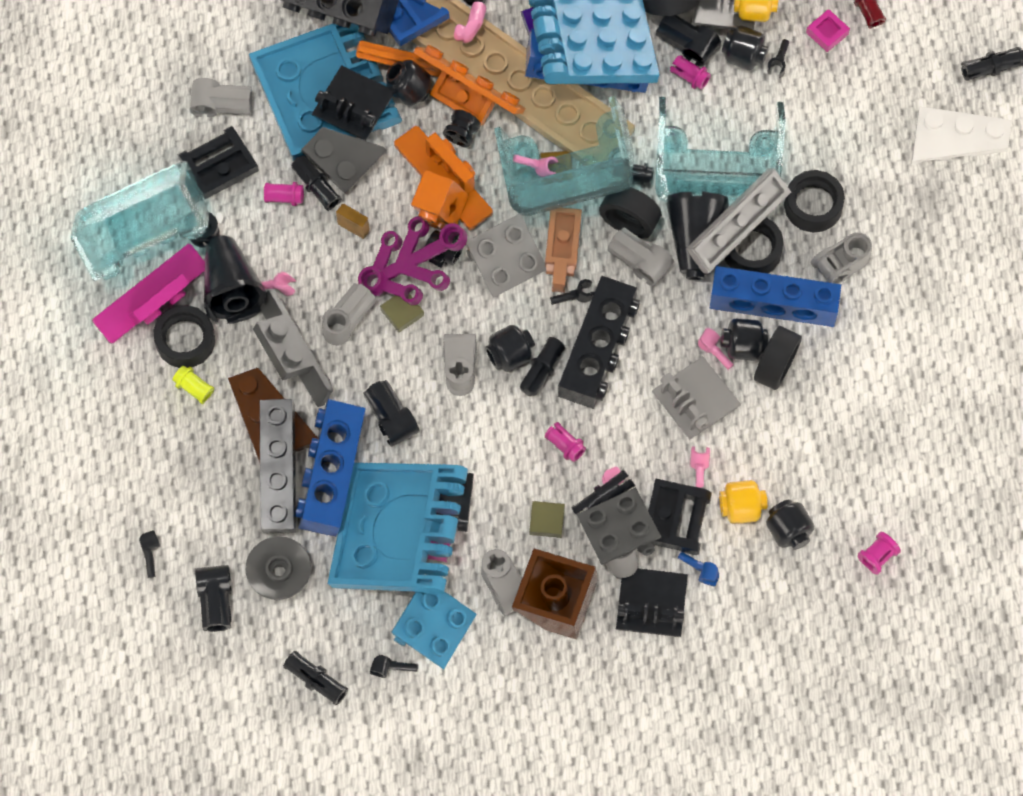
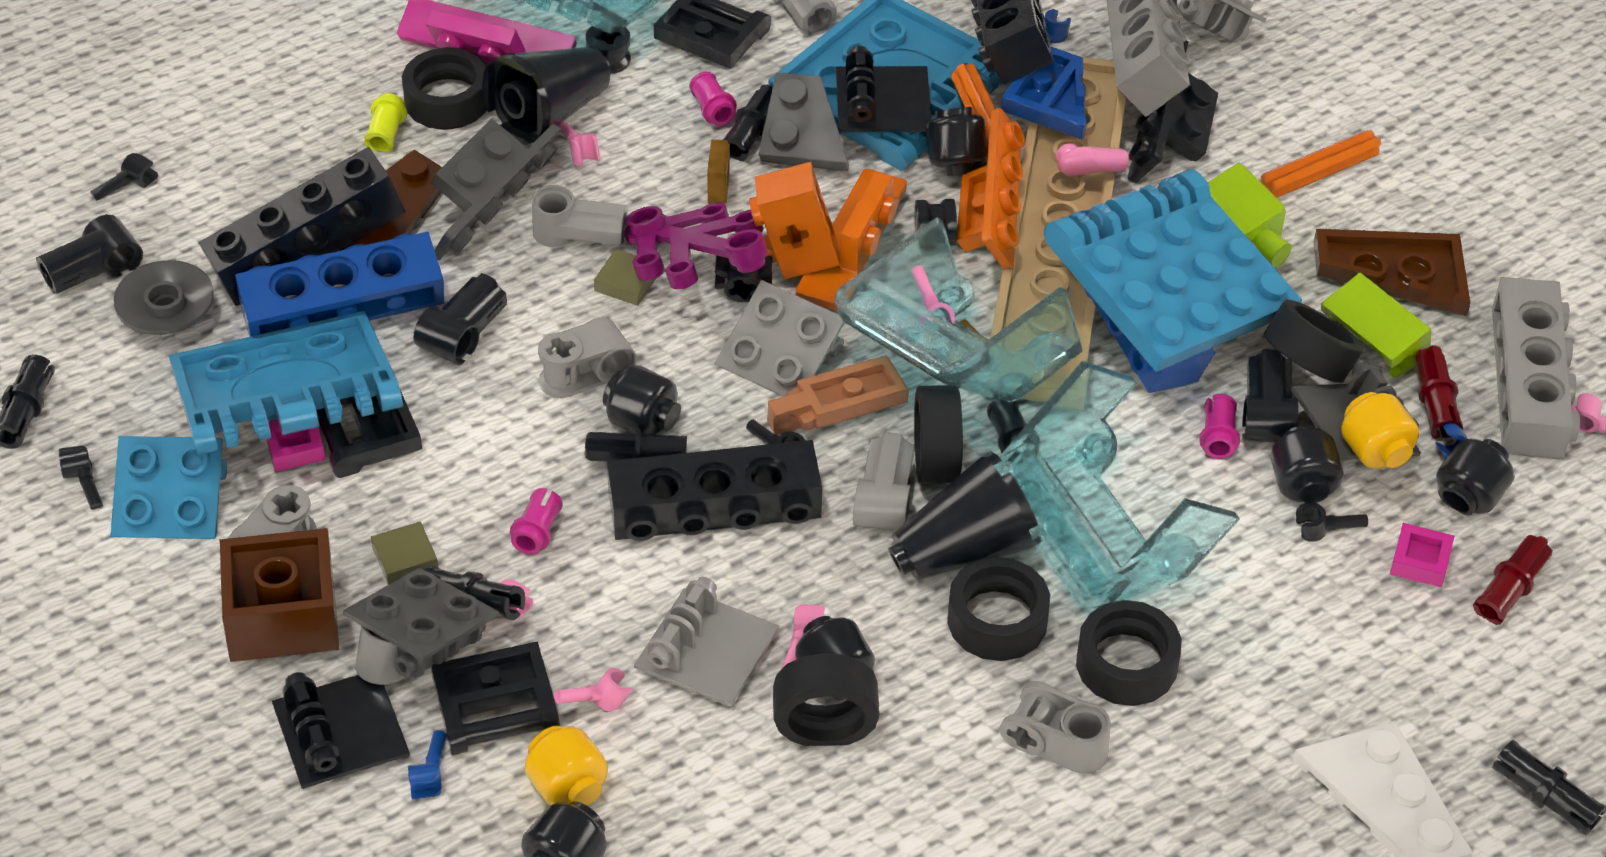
camera: 60 degrees right, 20 degrees down
(738, 220) = (1010, 550): light grey tile -> none
(775, 296) = (932, 665): blue brick -> none

